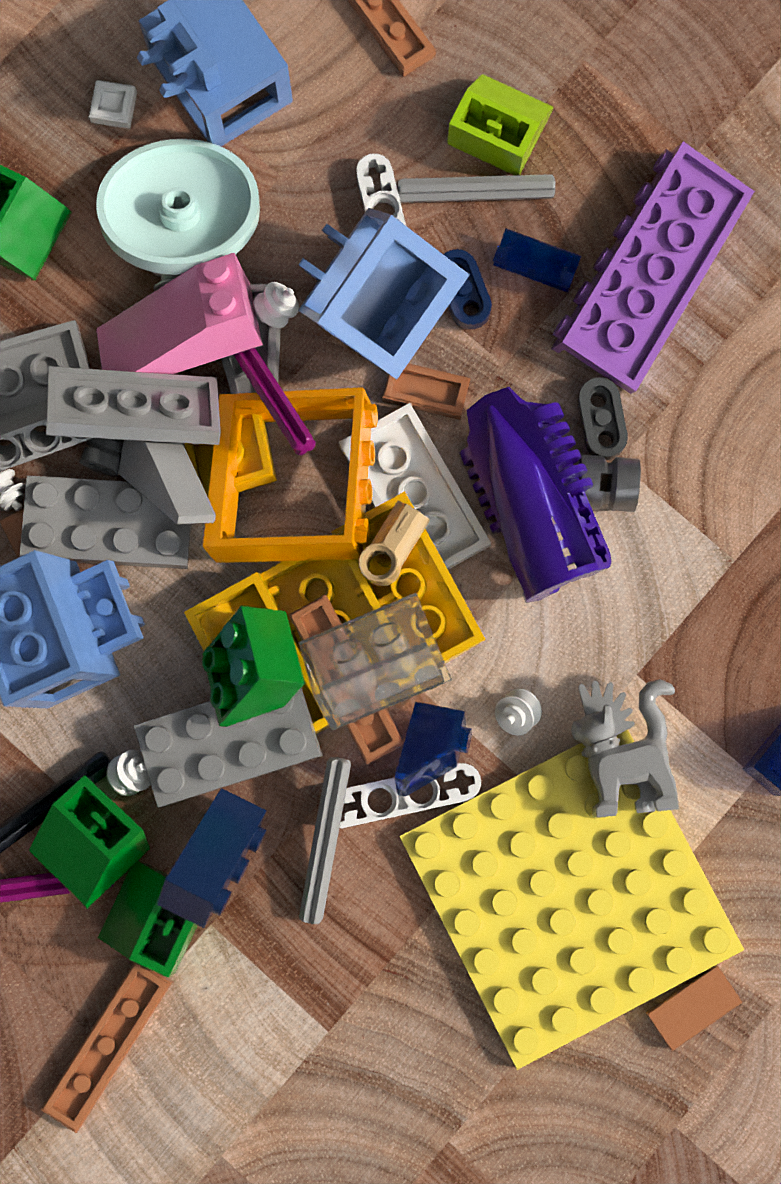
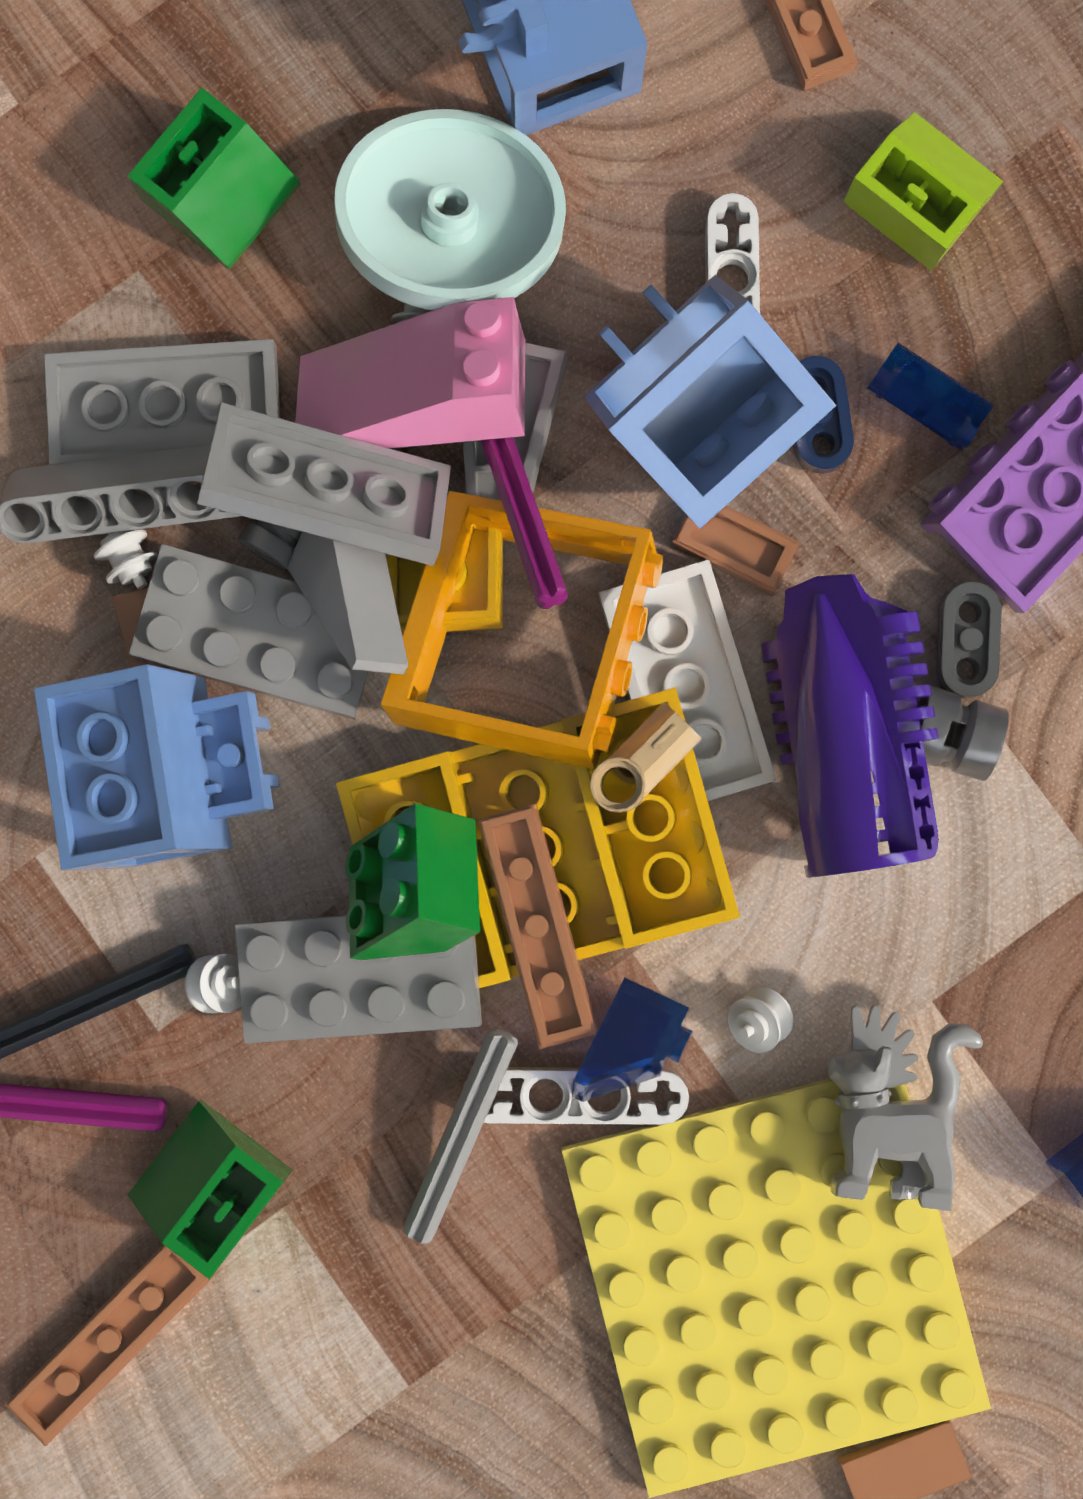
camera: 10 degrees right, 5 degrees up
(88, 841) = (139, 1068): green slope -> none
(112, 104) = (389, 41): white tile -> none
(213, 859) = (304, 1134): dark blue brick -> none
(276, 305) = (555, 383): white wheel -> none
(373, 662) = (580, 916): clear slope -> none
(476, 188) = (869, 274): light grey axle -> none

